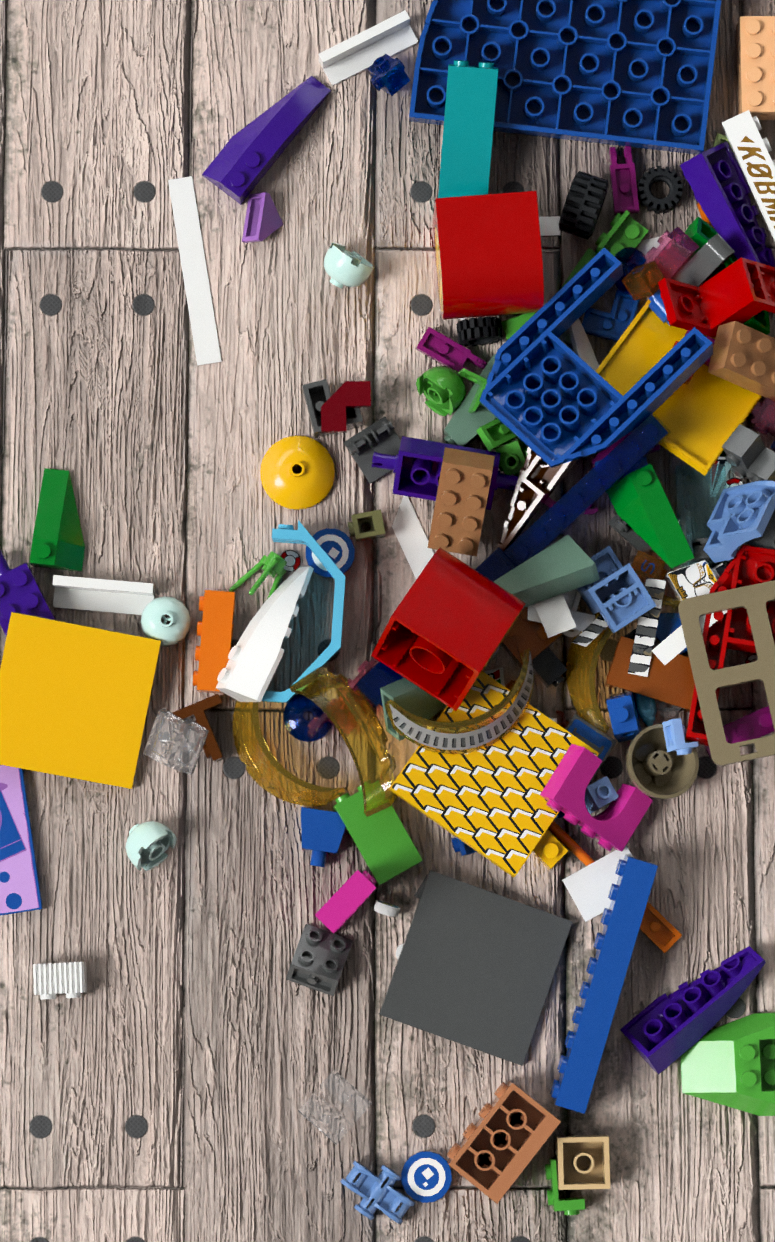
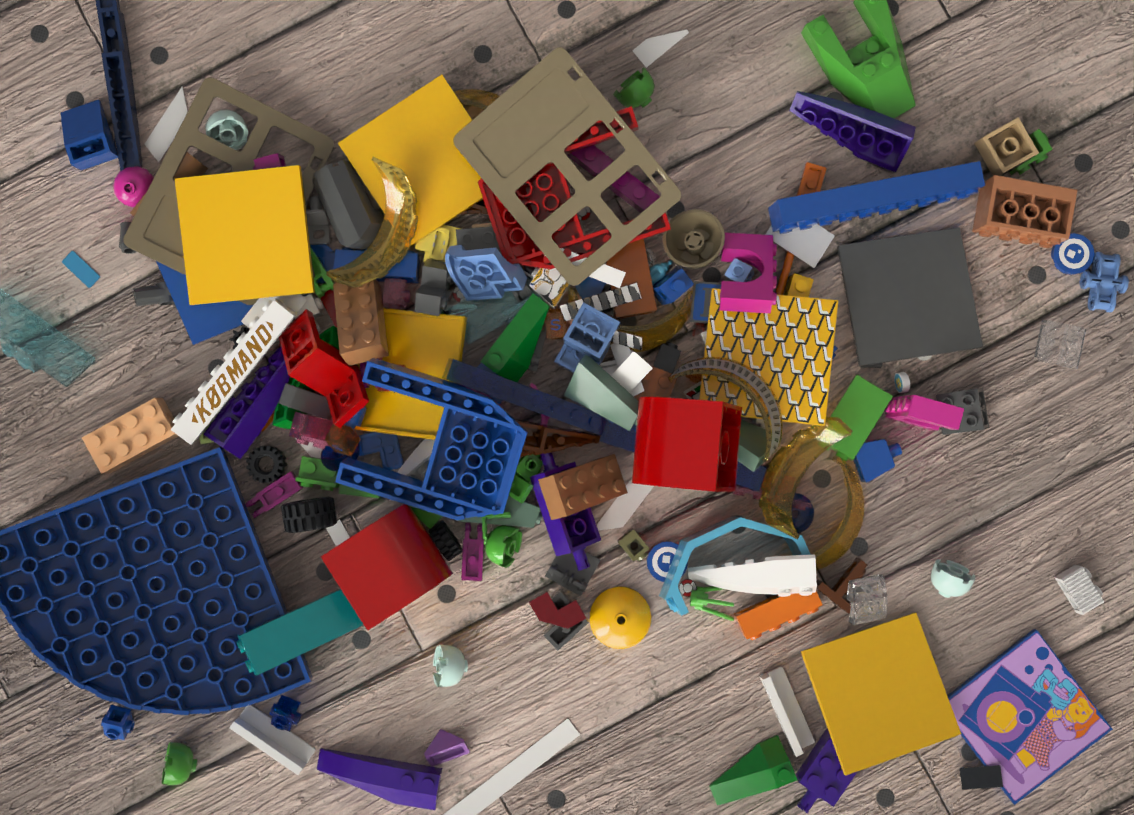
camera: 115 degrees left, 5 degrees up
(172, 632) = (776, 647): light aqua cylinder -> none
(675, 737) = (672, 238): light blue bracket -> none

